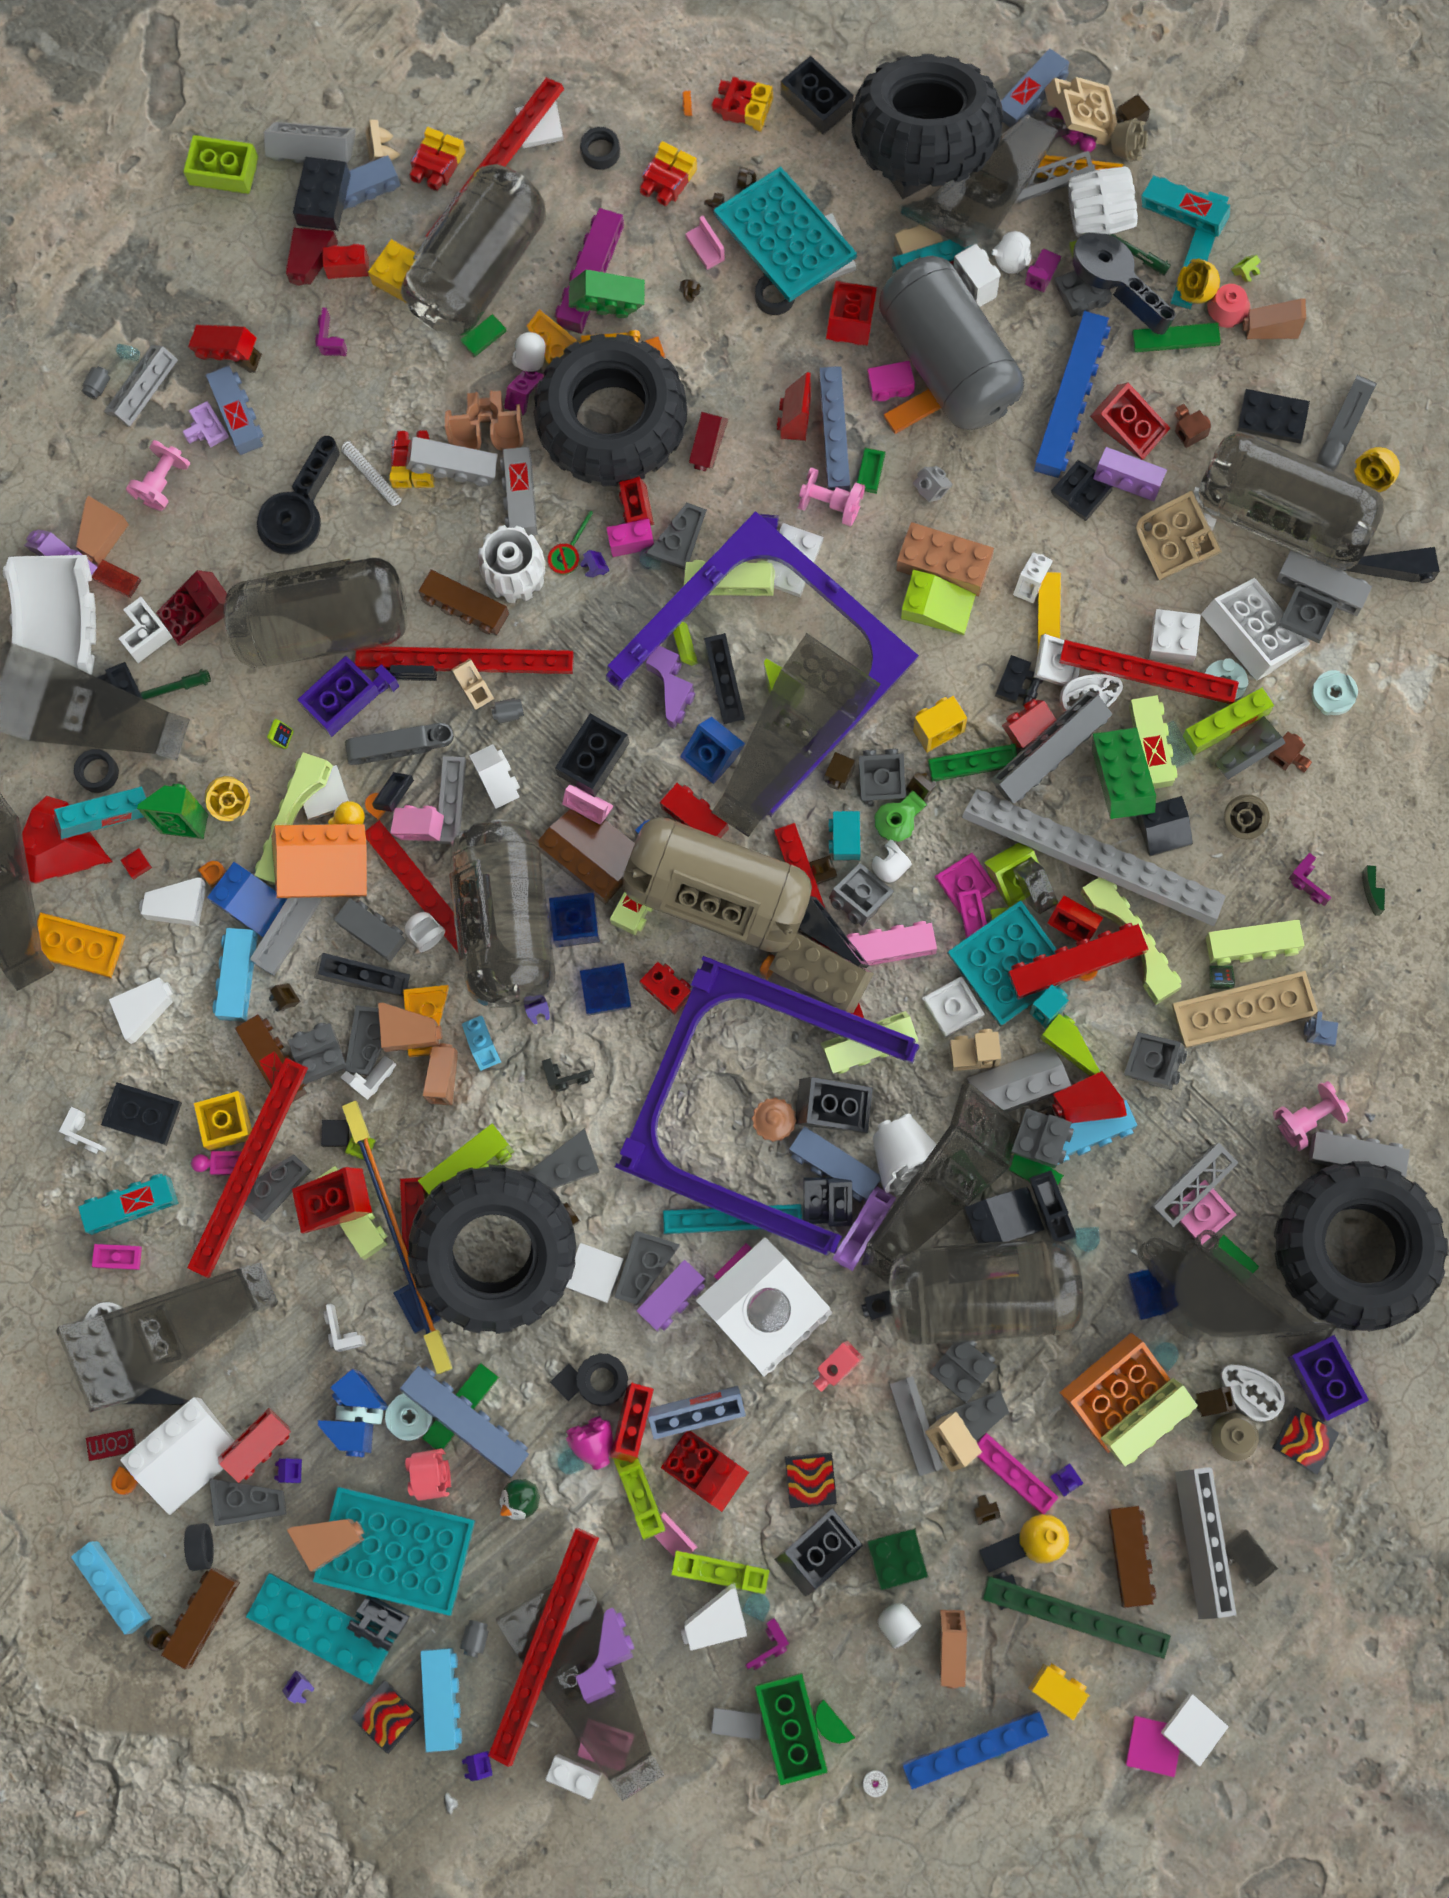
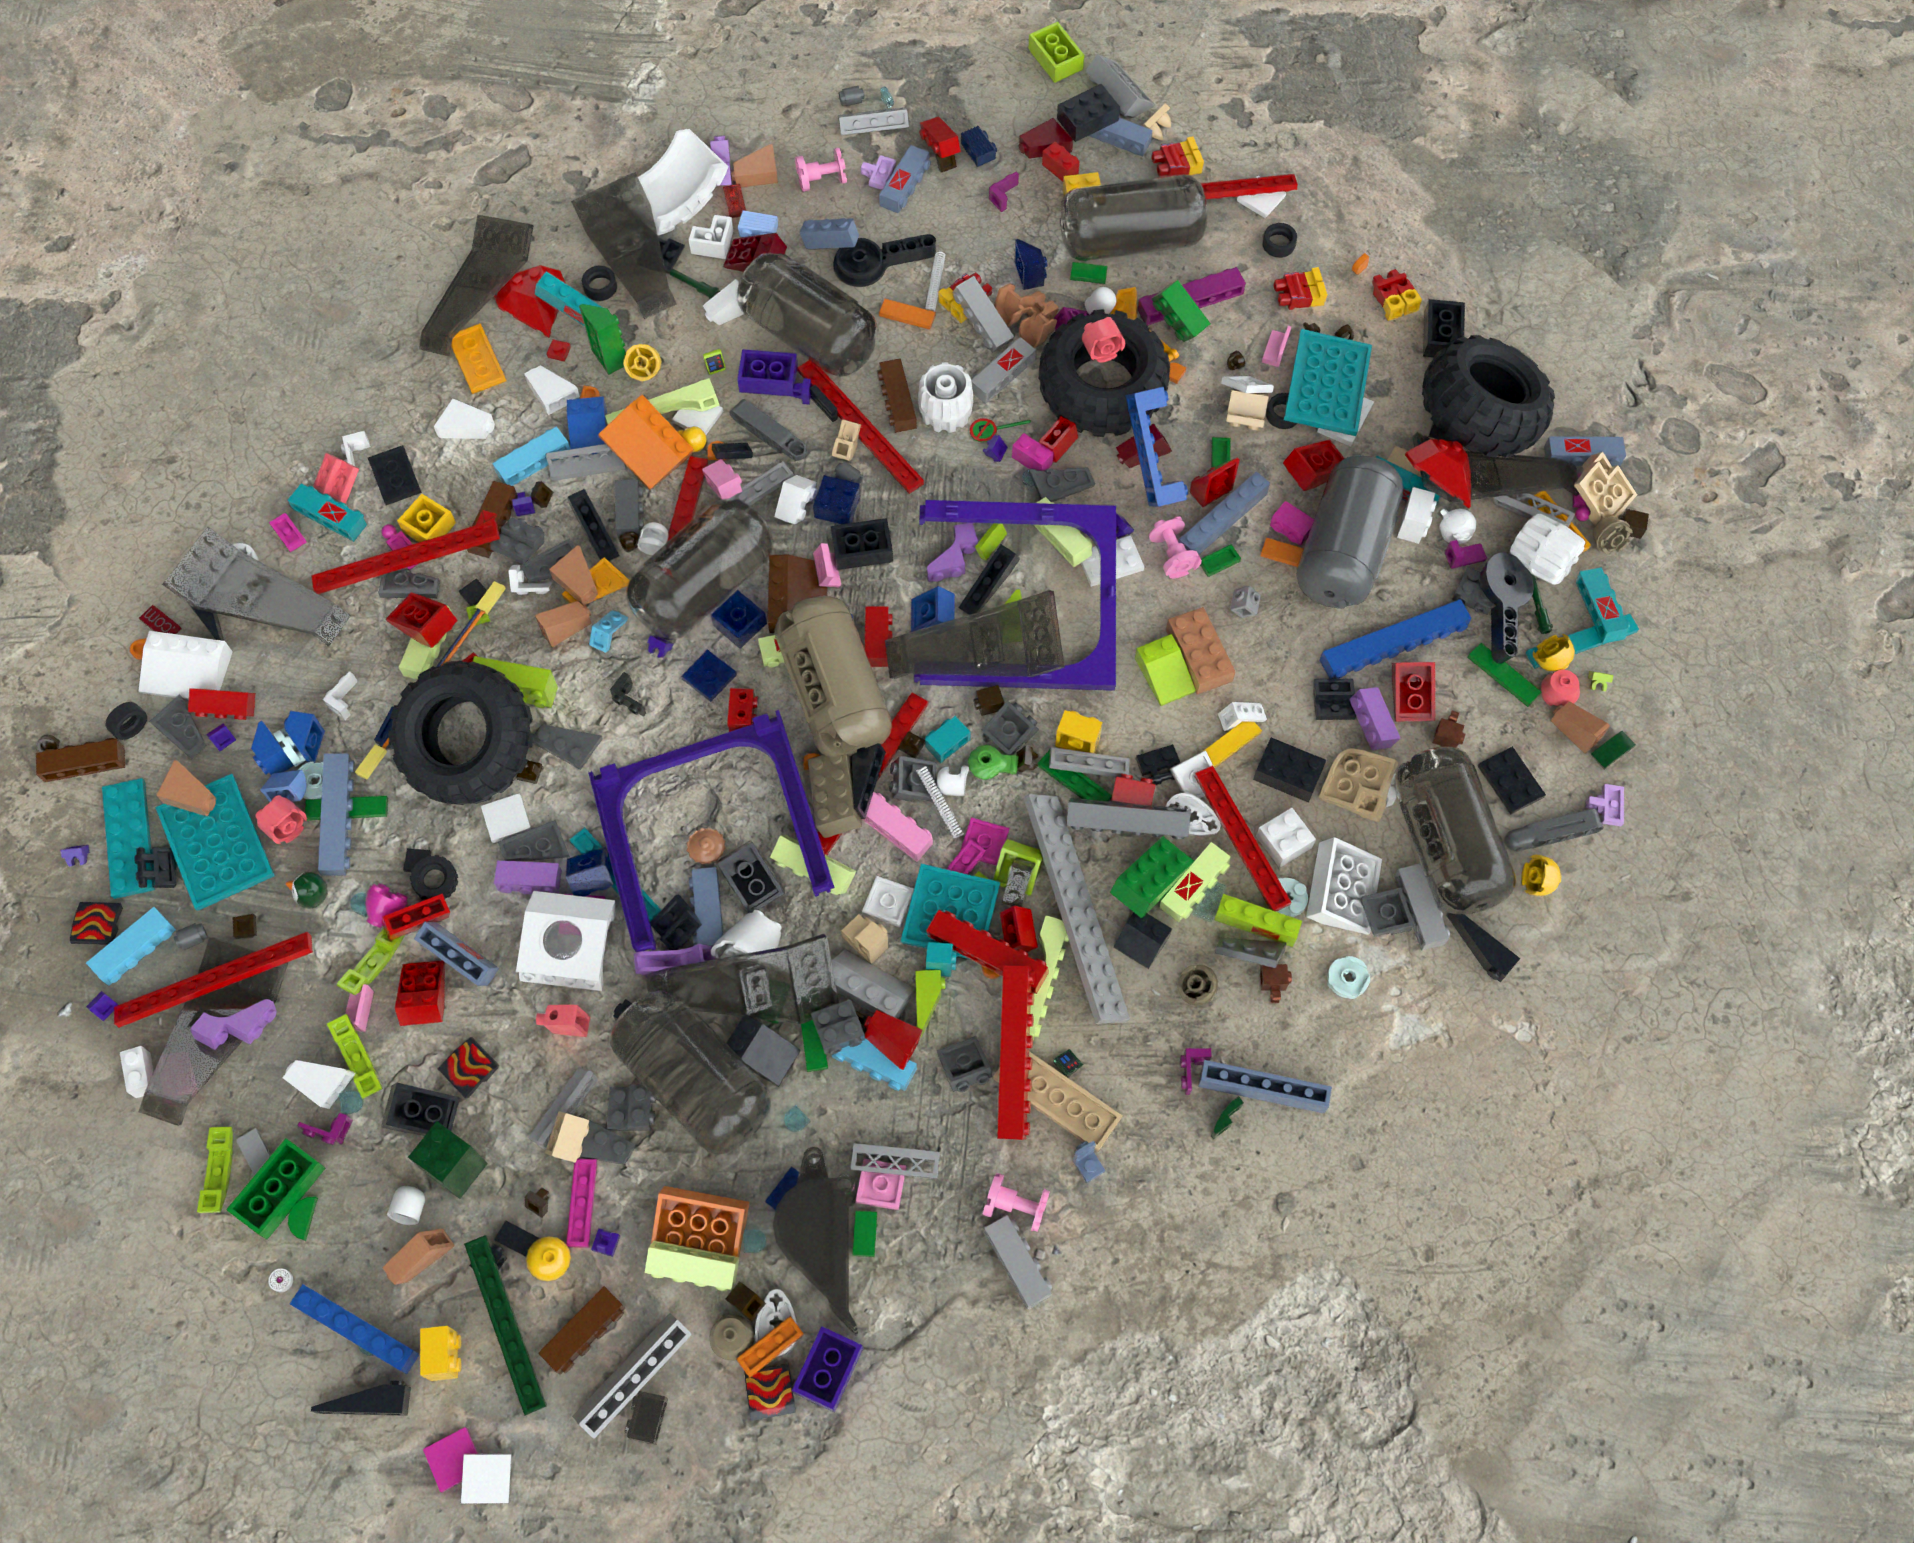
camera: 40 degrees right, 10 degrees down
(98, 1170) = (336, 478): none -> coral slope
(111, 1587) = (62, 692): medium azure brick -> none
(164, 580) = (756, 224): none -> light blue brick
(228, 676) = (723, 305): none -> white slope
(238, 524) = (829, 233): none -> sand blue brick
(259, 316) = (978, 146): none -> dark blue brick
(281, 1020) = (523, 505): none -> dark purple tile
(382, 525) = (907, 314): none -> orange tile
(395, 1446) = (286, 784): none -> medium blue brick
(405, 957) = (627, 542): none -> dark brown tile
(433, 379) = (1030, 265): none -> clear blue slope
(508, 1582) = (244, 926): none -> dark brown tile
(527, 741) = (836, 500): none -> clear blue brick
(596, 384) = (1103, 340): none -> coral brick
(714, 1238) = (589, 872): none -> clear blue slope
(727, 301) = (1247, 384): none -> white tile
(727, 1770) = (217, 1171): none -> lime slope
(748, 321) = (1247, 409): none -> tan bracket
(765, 462) = (1157, 493): none -> plate
(768, 381) = (1220, 451): none -> green tile
(900, 891) = (949, 825): none -> white piece
(963, 212) = (1446, 465): none -> red wedge
(971, 737) = (1088, 762): none -> light grey plate
(1052, 1207) = (795, 1077): black slope -> none
(1055, 1773) = (379, 1400): none -> black slope
(1116, 581) = (1289, 769): none -> black brick
(1188, 1012) = (1014, 1052): none -> red brick
(1254, 942) = (1112, 1064): yellowish green brick -> none
(1270, 1411) = (770, 1346): none -> orange tile
(1316, 314) = (1613, 749): none -> dark green slope
(1360, 360) = (1609, 804): none -> lavender hinge
(1374, 838) = (1265, 1086): none -> sand blue brick
(1397, 1203) = (957, 1366): black tyre -> none

